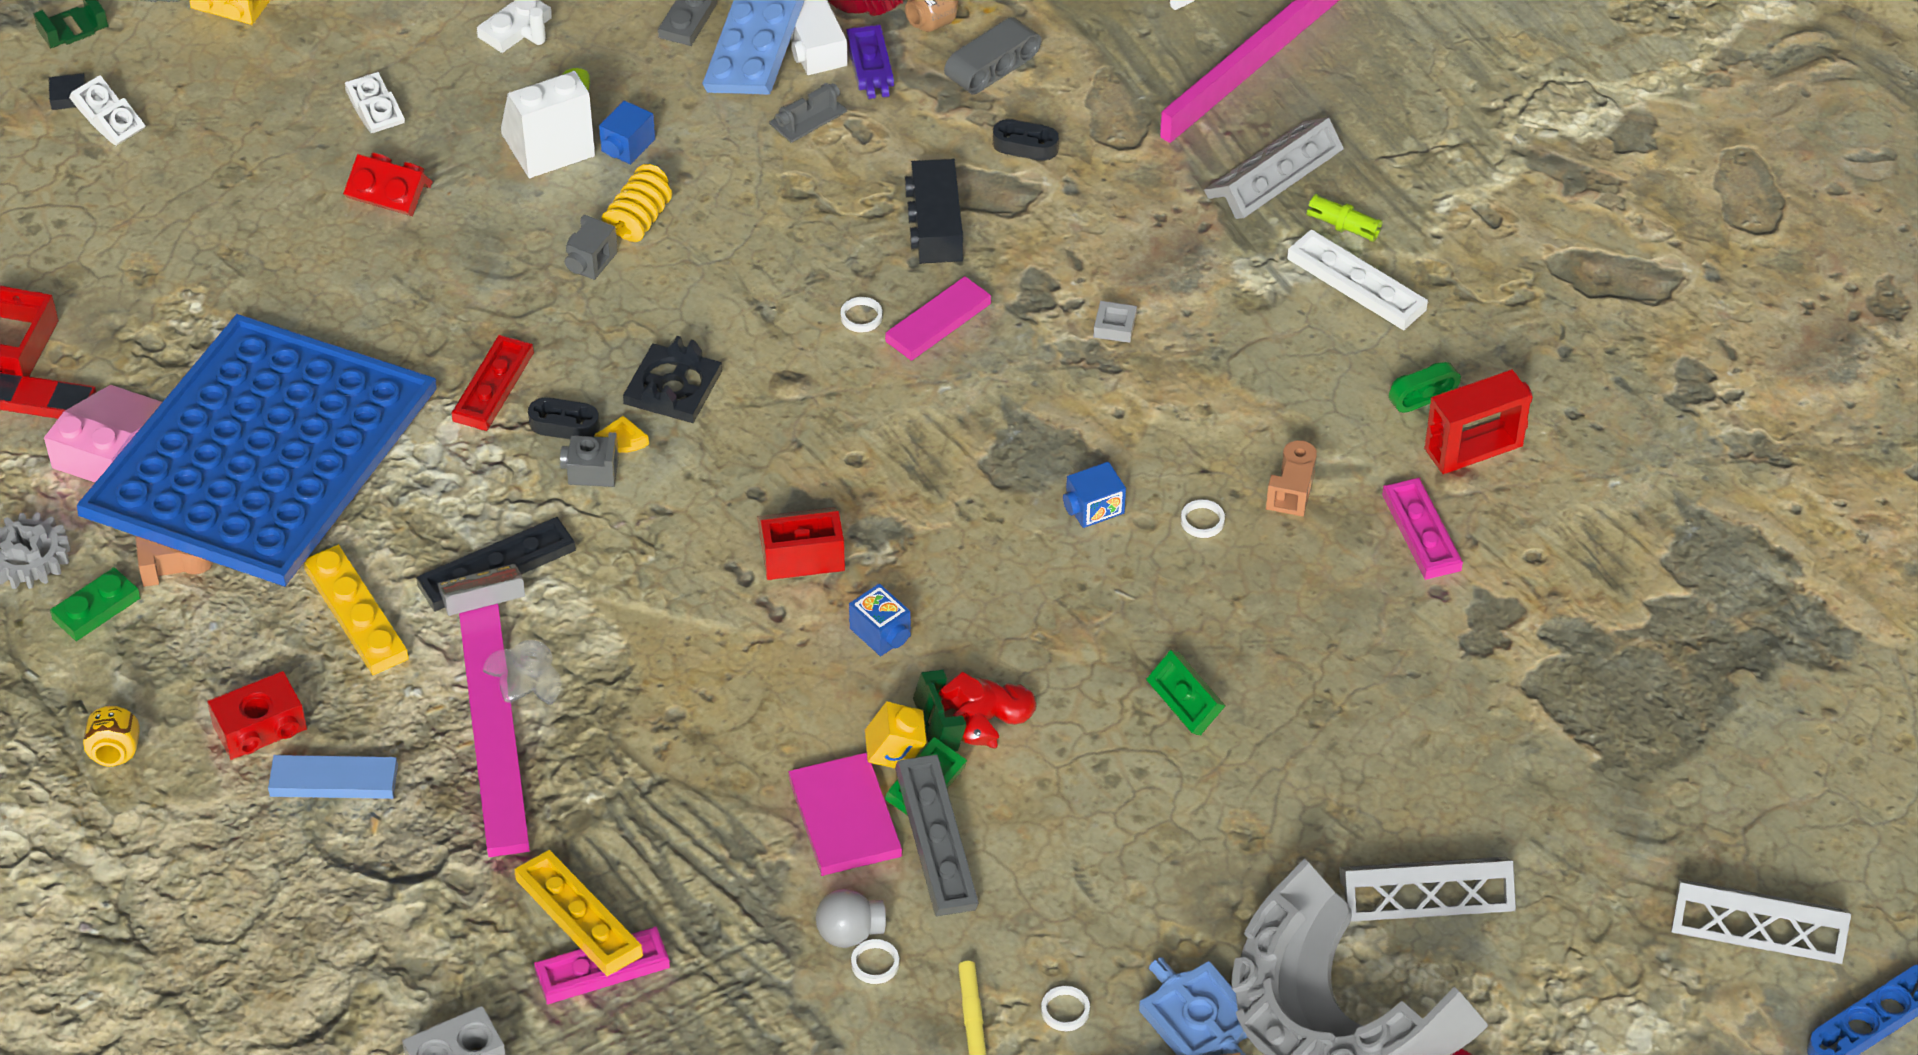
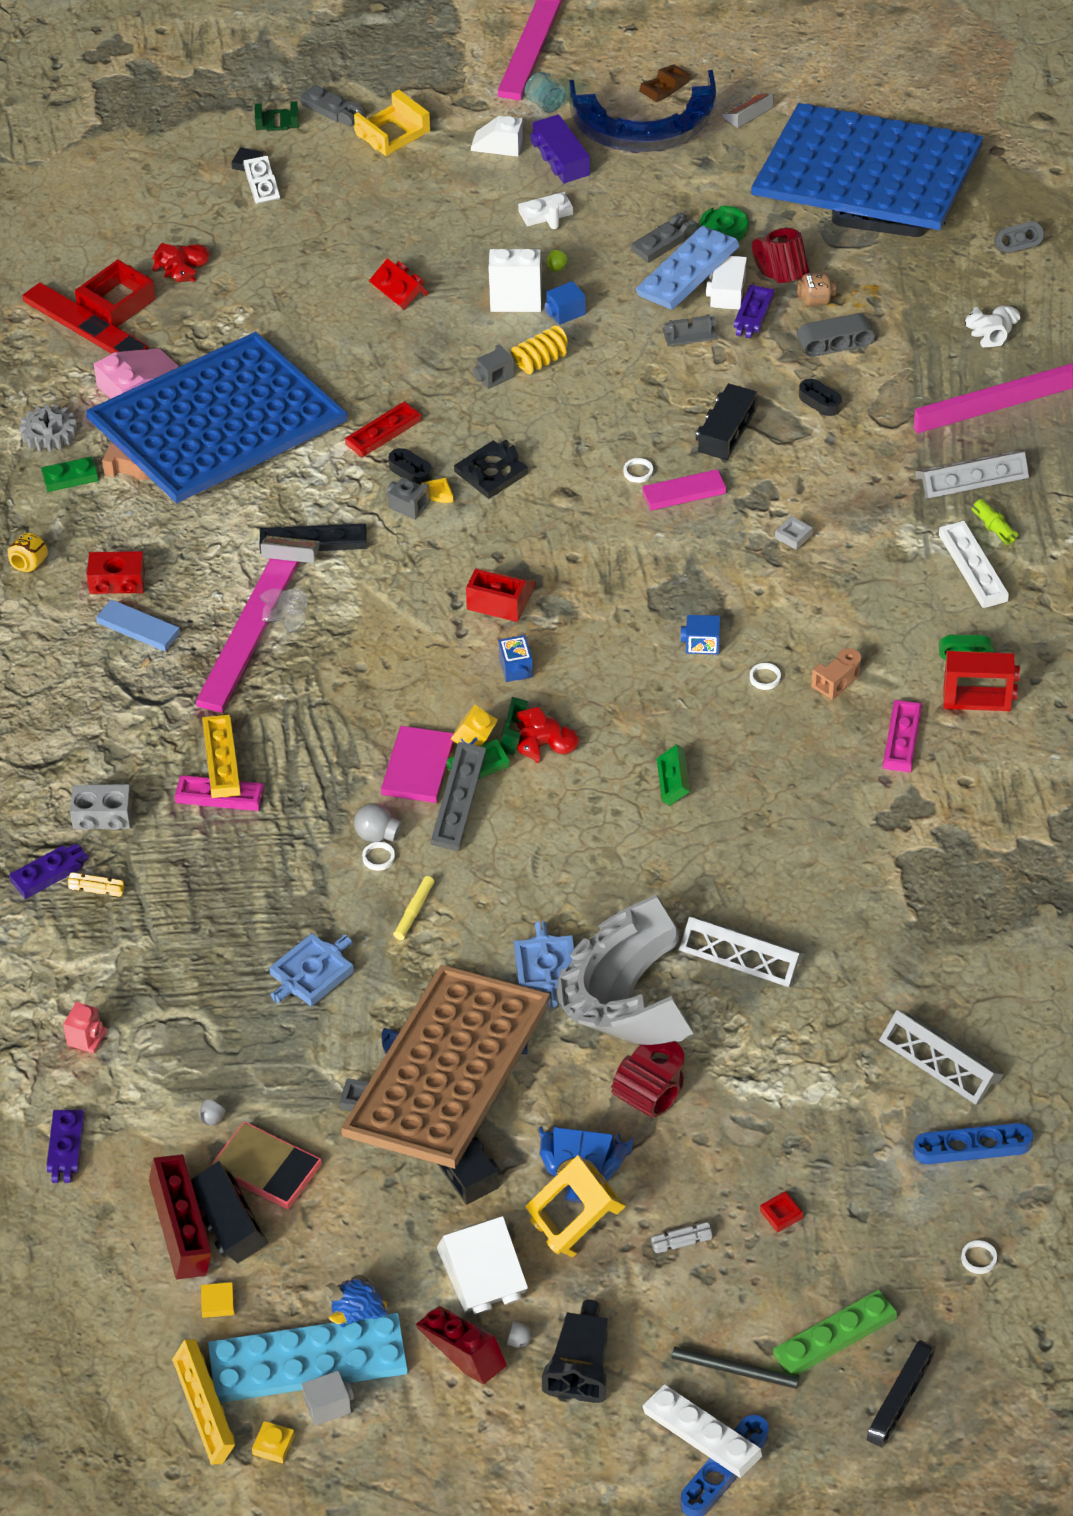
camera: 30 degrees right, 0 degrees up
(64, 254) = (177, 258): none -> red animal
(355, 610) = (213, 534): yellow plate -> none
(374, 103) = (424, 230): white slope -> none
(1065, 990) = (475, 939): white piece -> none

